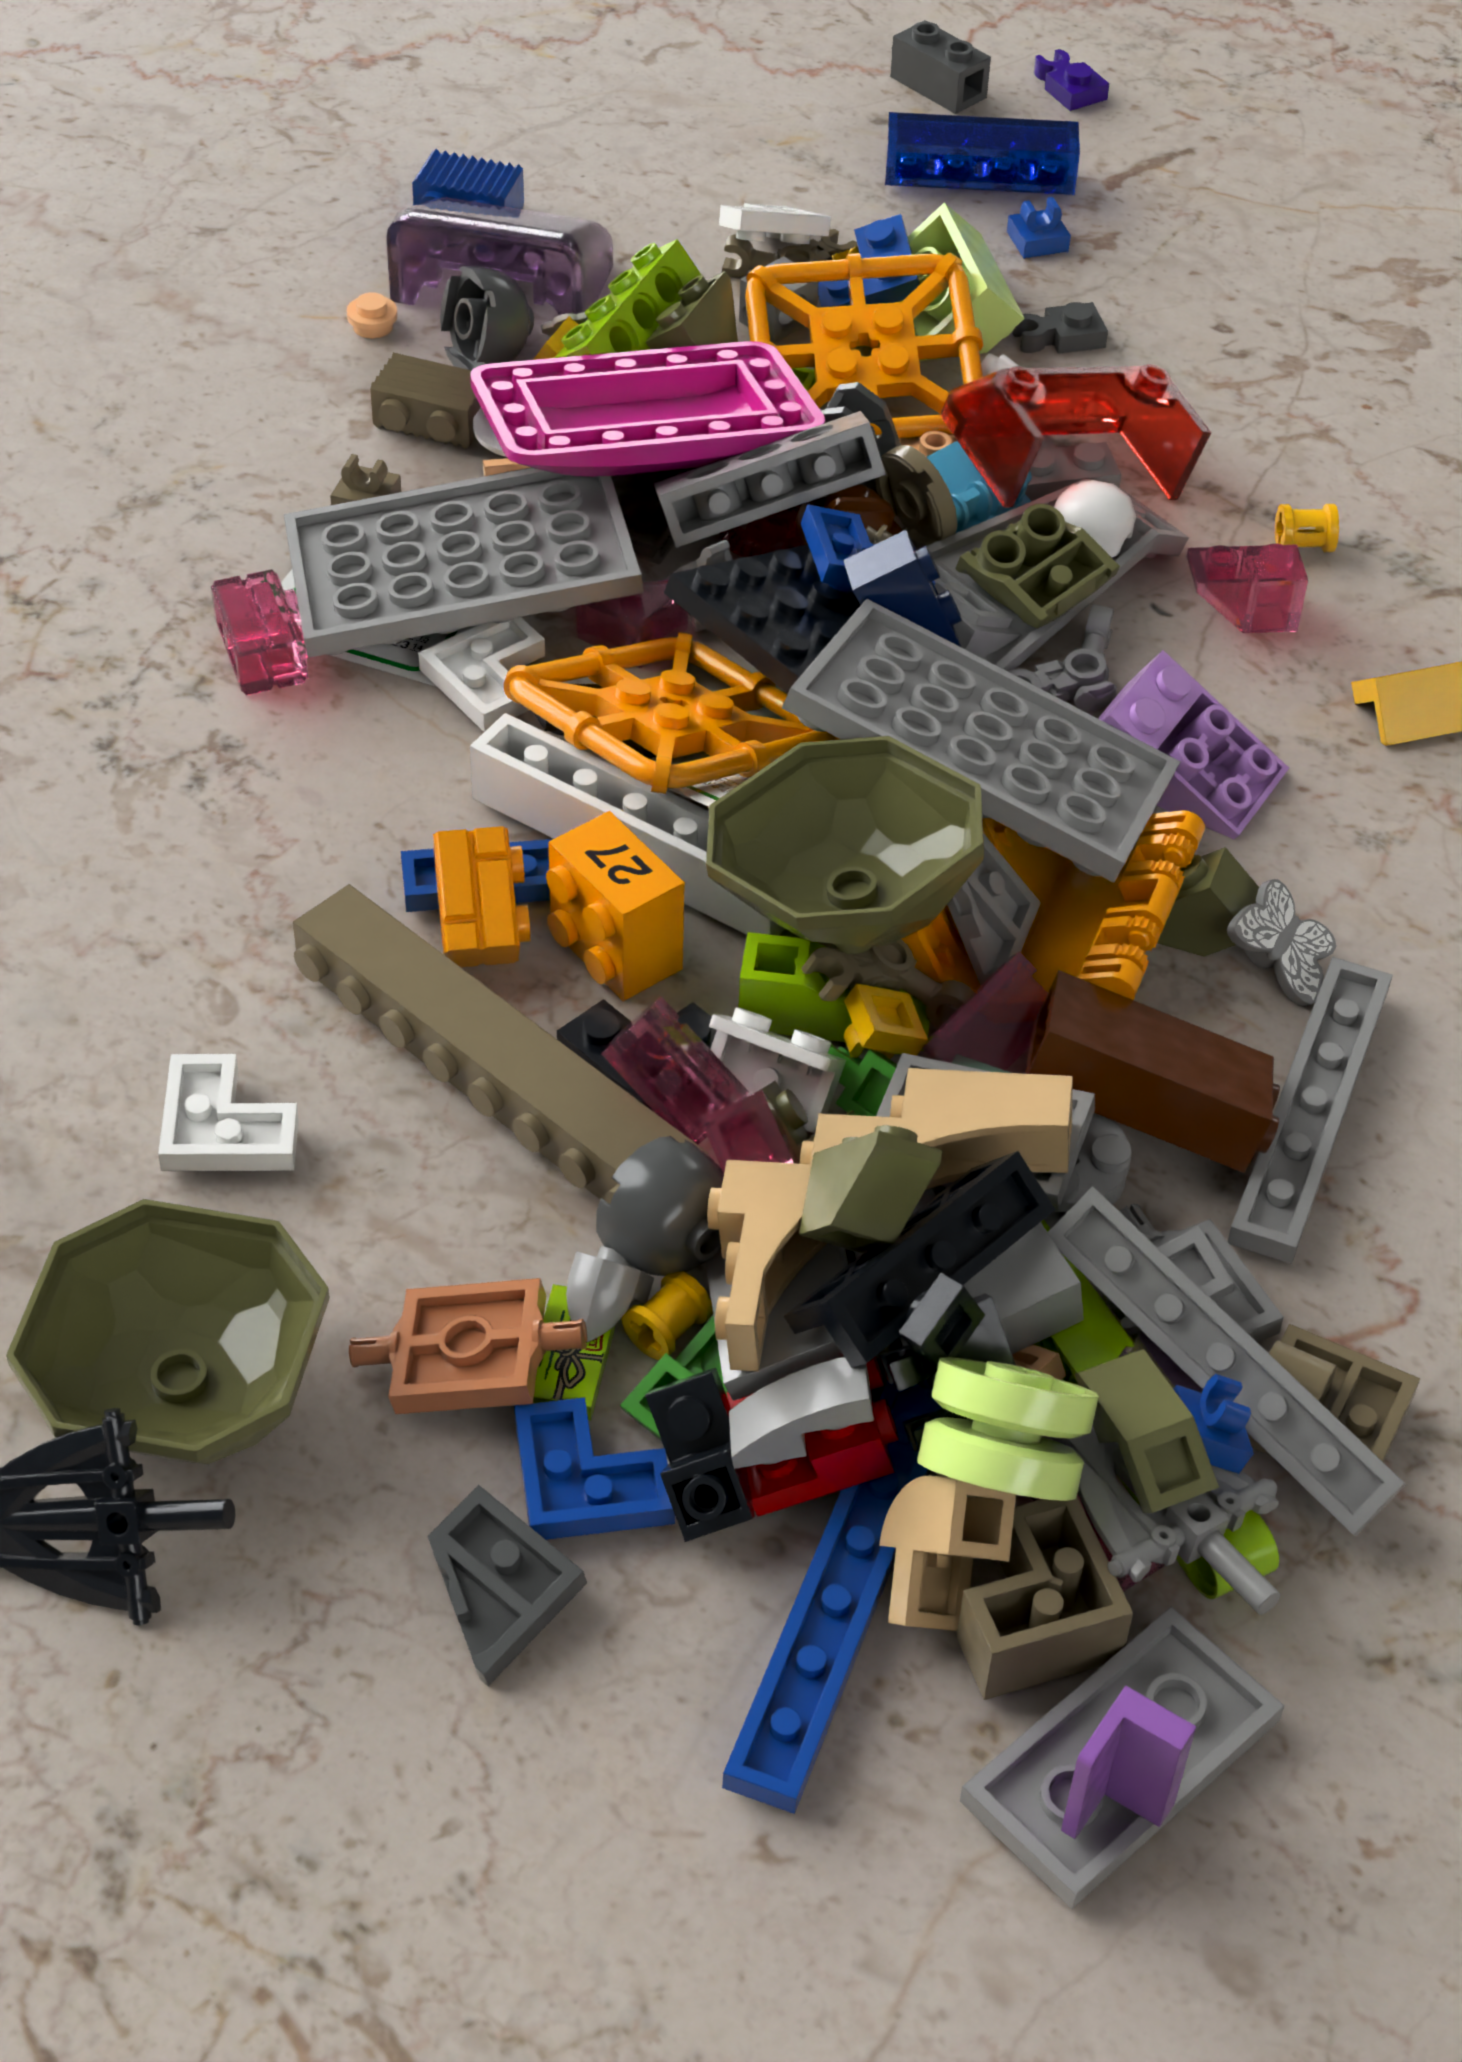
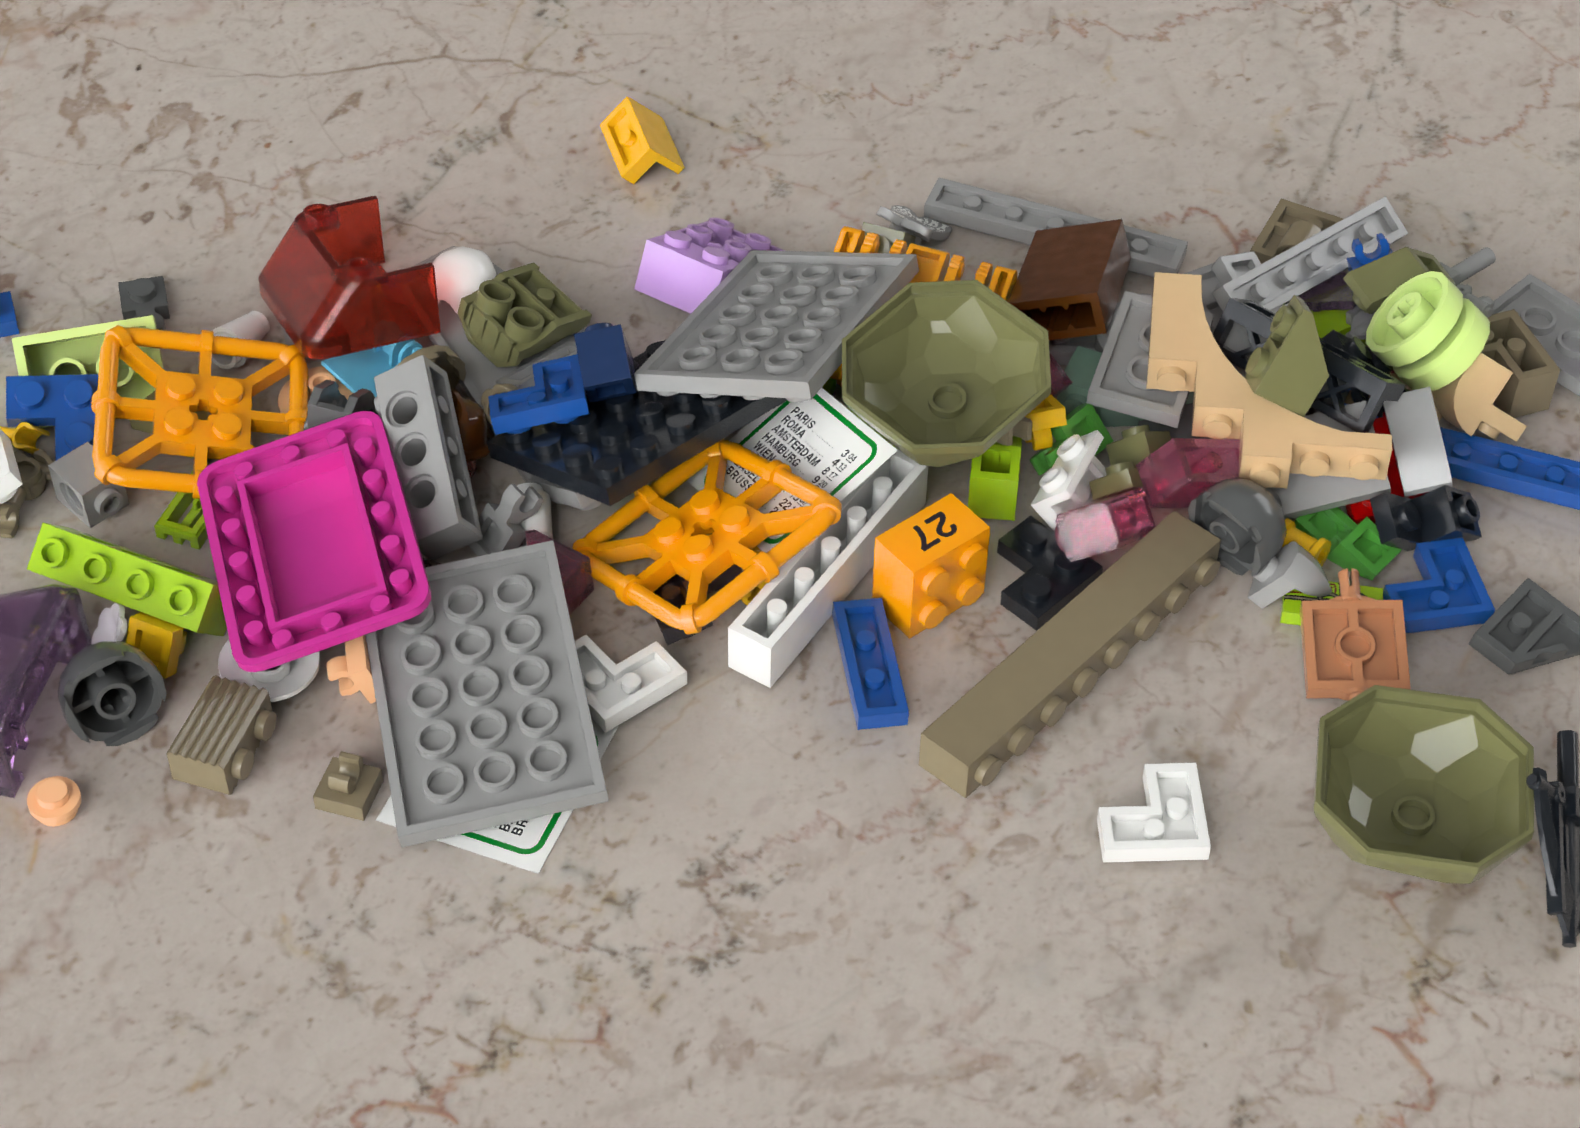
camera: 90 degrees left, 0 degrees up
(260, 631) = (570, 841): clear pink brick -> none
(478, 896) = (923, 654): light orange brick -> none
(700, 317) = (149, 529): olive slope -> none
(941, 1321) = (1374, 342): black plate -> none
(1083, 671) = (616, 311): light grey piece -> none
(1252, 585) = (527, 202): clear pink slope -> none
(1324, 520) = (445, 174): yellow bush -> none

